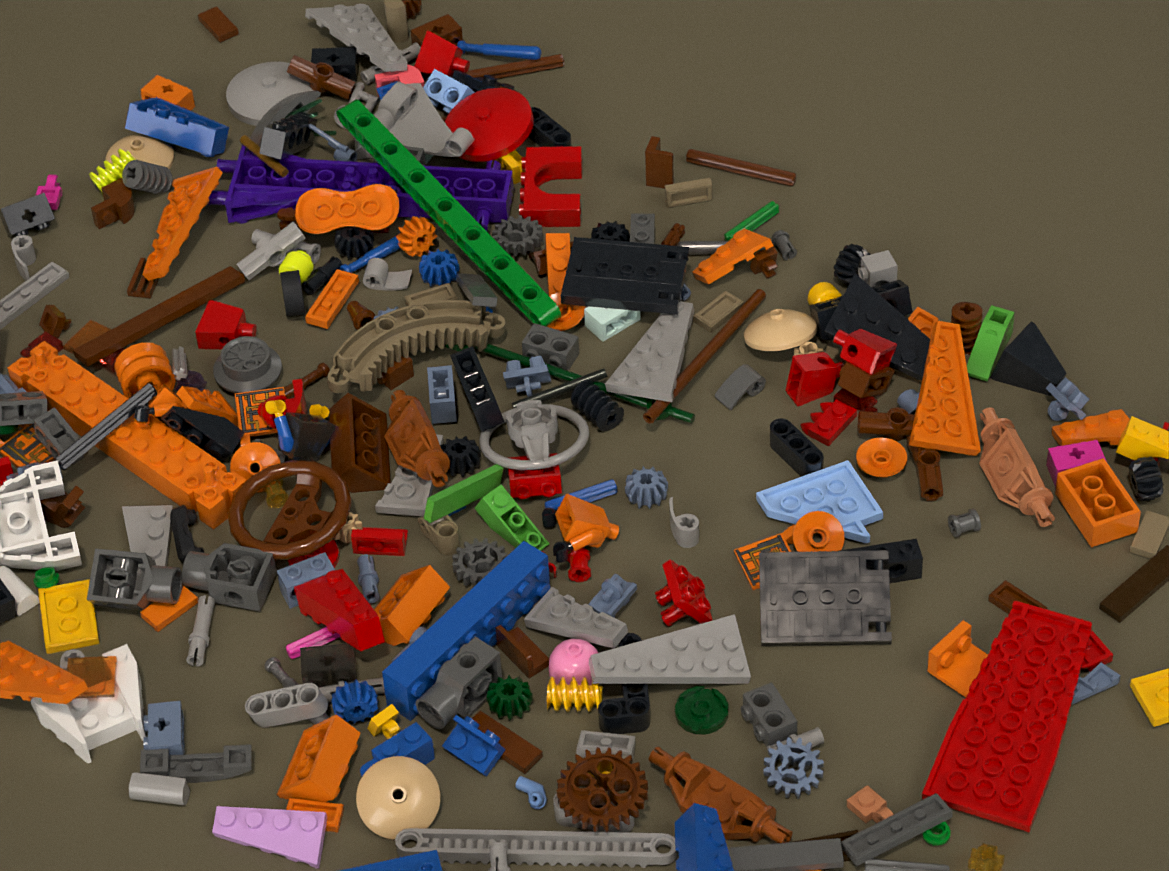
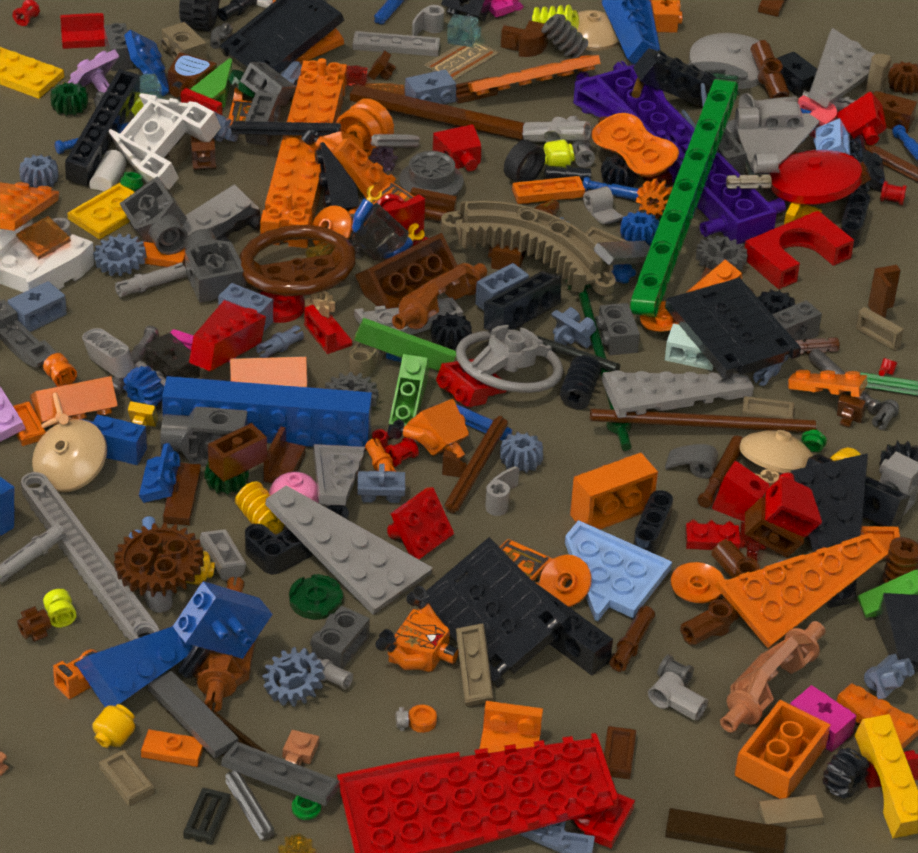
camera: 50 degrees right, 5 degrees down
(61, 239) = (458, 36): none -> clear light blue brick
(89, 263) = (462, 59): none -> sticker
(122, 302) = (432, 87): none -> sand blue brick
(148, 635) = (120, 254): none -> sand blue gear
(270, 754) = (59, 369): none -> orange wheel
(282, 377) = (436, 199): none -> reddish brown tile
(355, 777) = (60, 417): none -> light nougat plant
(465, 166) = (748, 181): none -> dark tan axle
(518, 669) = (237, 452): none -> reddish brown brick
(537, 92) = (893, 193): none -> red bush
(577, 584) = (378, 455): none -> orange pin
(623, 540) = (452, 465): none -> reddish brown tile
(635, 520) = (476, 464): none -> reddish brown axle
(728, 782) = (219, 622): none -> blue piece
(732, 214) = (887, 366): none -> red hand
(749, 357) = (729, 456): none -> reddish brown piece
(751, 451) = (613, 491): none -> orange brick
(780, 301) = (814, 440): none -> green plate
(811, 662) = (420, 639): none -> orange torso
(868, 642) = (475, 665): none -> dark tan tile
(886, 721) = (402, 718): none -> light grey piece
(892, 708) = (422, 718): none -> orange tile
(908, 529) = (629, 645): none -> reddish brown pin
(985, 538) = (671, 692): none -> light grey piece

